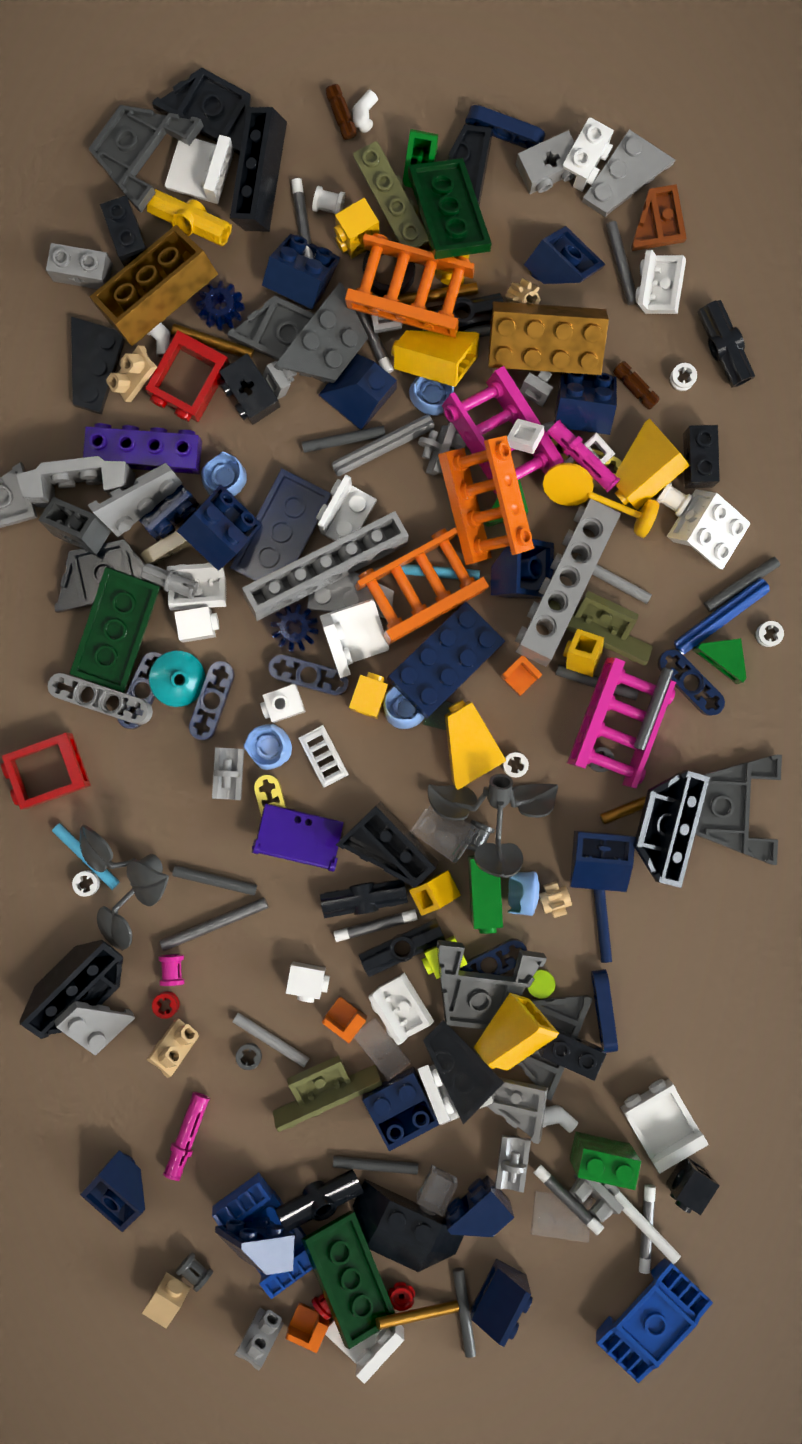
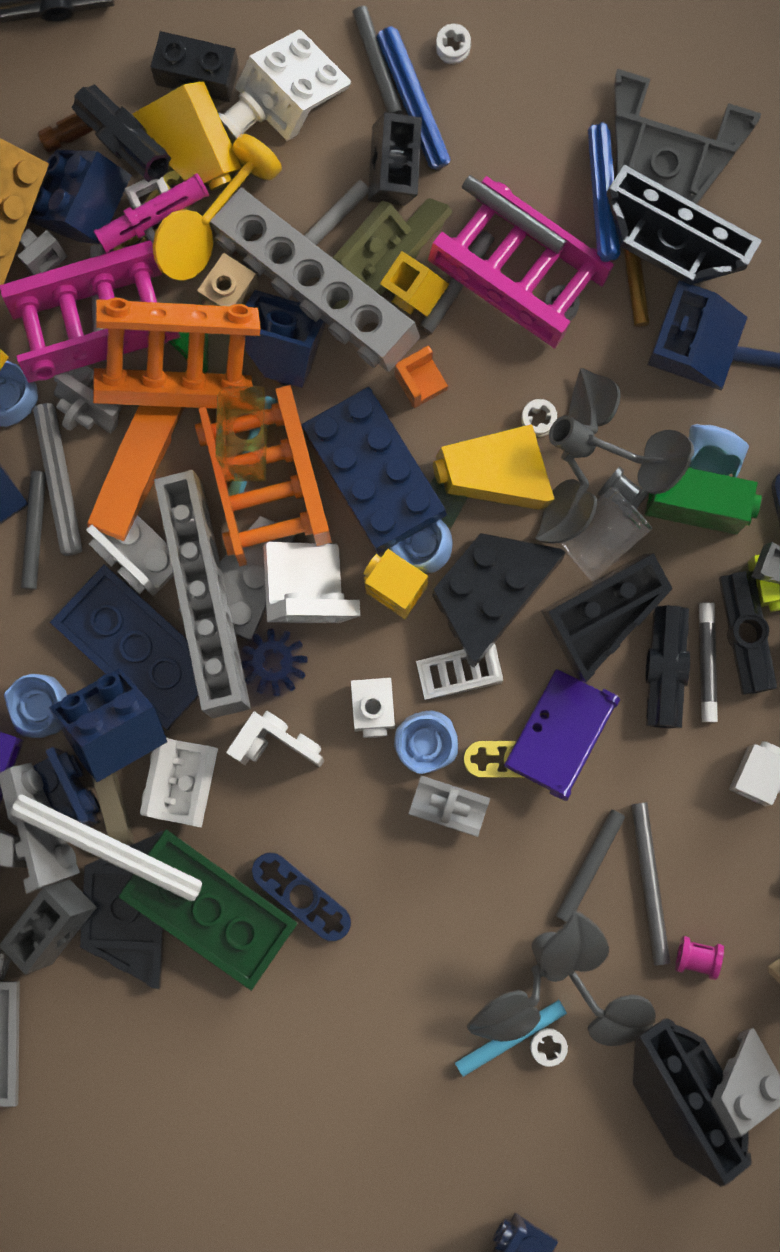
camera: 70 degrees left, 5 degrees down
(72, 761) = (375, 1019): red window -> none
(99, 699) = (300, 959): light grey beam -> none
(134, 549) = (106, 847): none -> white axle
(156, 1005) = (748, 968): red bush -> none
(163, 674) = (294, 861): teal dish -> none
(169, 580) = (161, 814): light grey axle -> none
(196, 624) = (231, 795): white brick -> none
(227, 683) = (322, 779): dark blue beam -> none
(248, 639) = (251, 741): none -> white bracket
(290, 662) = (319, 683): dark blue beam -> none
(385, 763) = (491, 588): none -> black wing
(400, 495) = (134, 469): none -> orange slope
(440, 891) = (686, 567): yellow brick -> none
(459, 547) = (230, 405): none -> clear yellow piece
(525, 436) = (103, 278): white plate -> none
(547, 523) = (228, 283): none -> tan brick
(555, 899) = (734, 411): tan gear -> none
(635, 418) = (121, 133): none -> black piece
(671, 615) = (395, 159): none -> black brick
(675, 374) = (88, 53): white bush -> none
(696, 764) = (602, 177): none -> blue axle
(699, 703) = (520, 157): dark blue beam -> none
(726, 657) = (471, 105): green slope -> none

